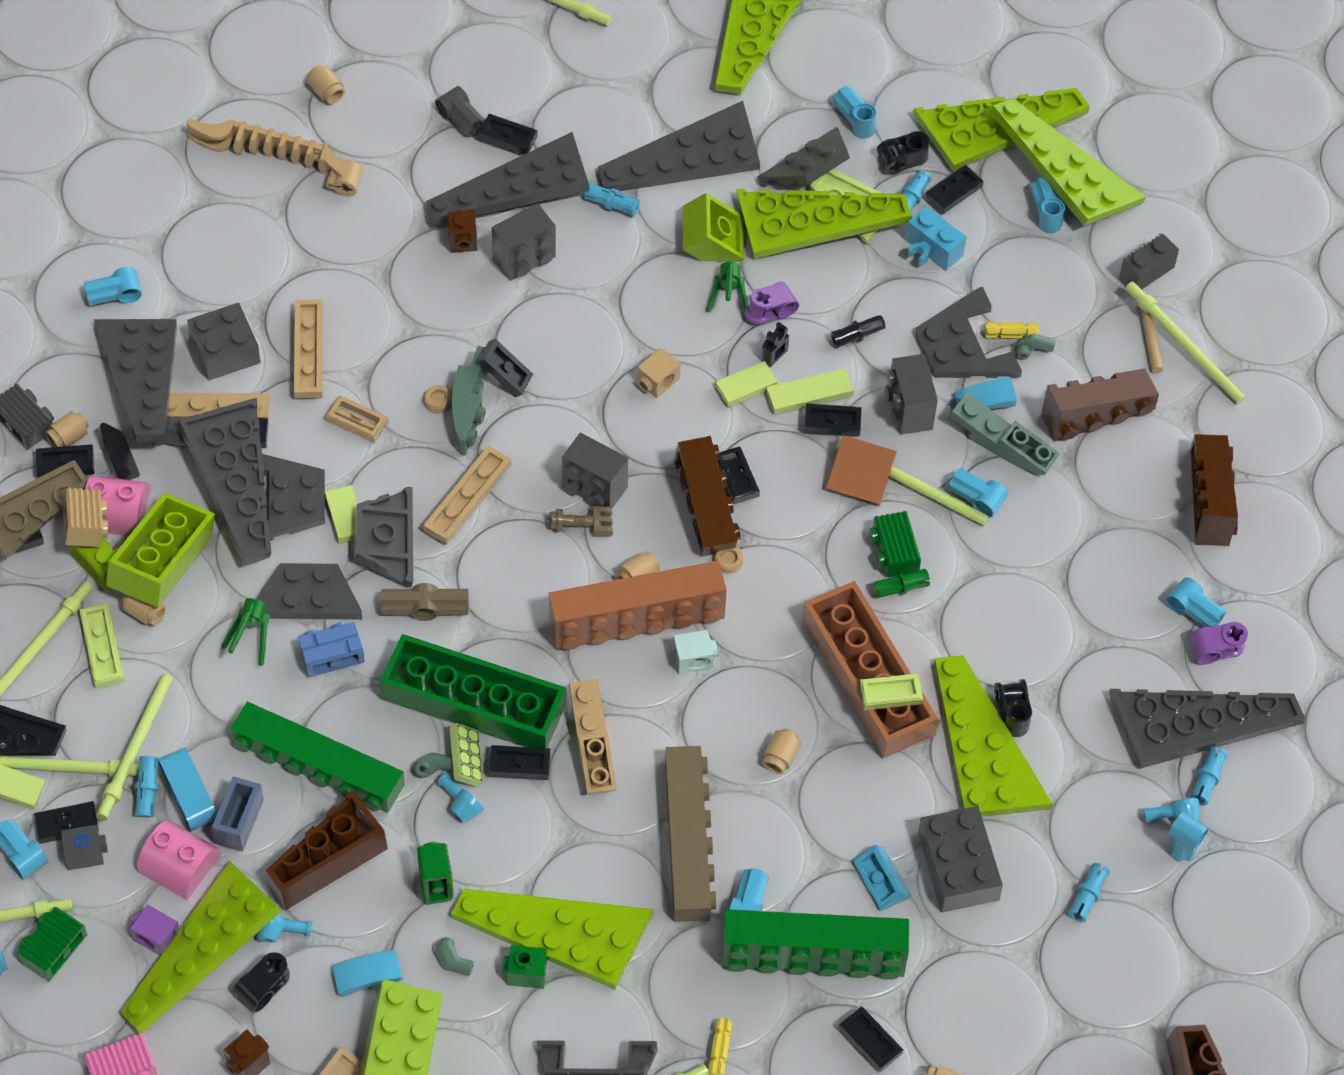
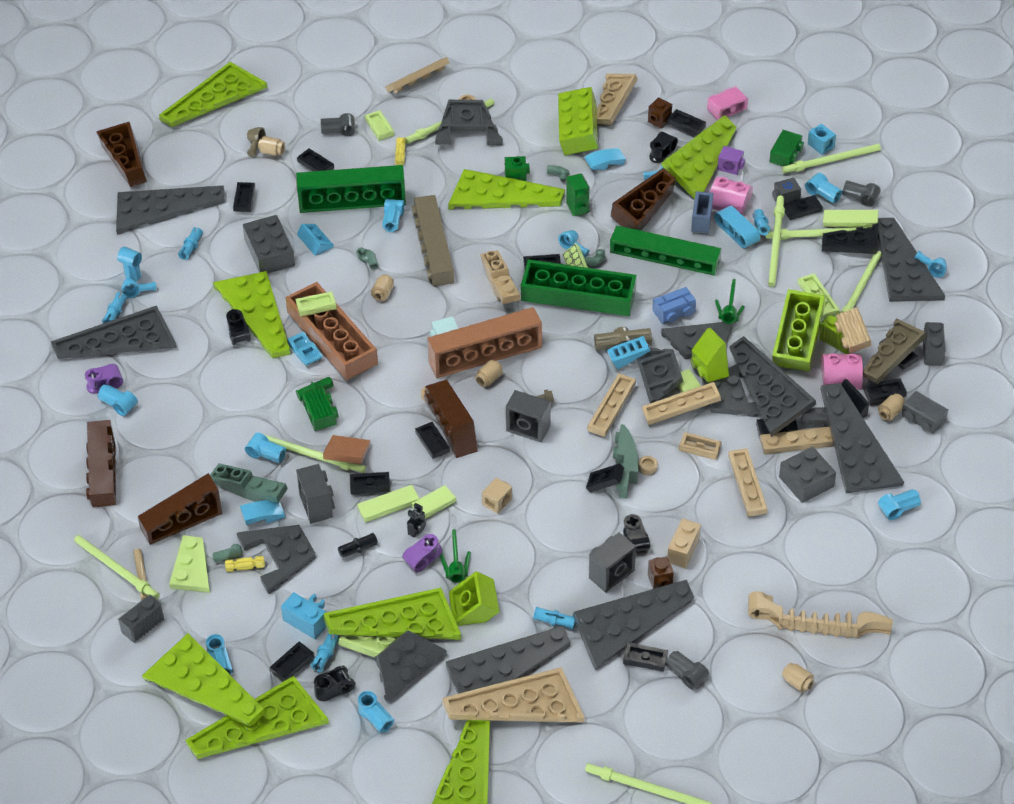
camera: 175 degrees right, 10 degrees down
(203, 1033) = (686, 122): none -> black plate
(307, 526) = (710, 357): none -> lime slope
(367, 472) = (681, 403): none -> tan plate
(420, 267) = (684, 543): none -> tan brick
(440, 566) = (618, 352): none -> medium azure slope
(482, 292) = (635, 532): none -> black piece
(673, 97) = (528, 698): none -> tan wing
(795, 823) = (368, 256): none -> sand green arm
(914, 657) = (304, 349): none -> medium azure slope
(997, 978) = (244, 197): none -> black plate
(1084, 338) = (190, 566): none -> yellowish green wing
(1149, 987) = (155, 206): none -> dark grey wing

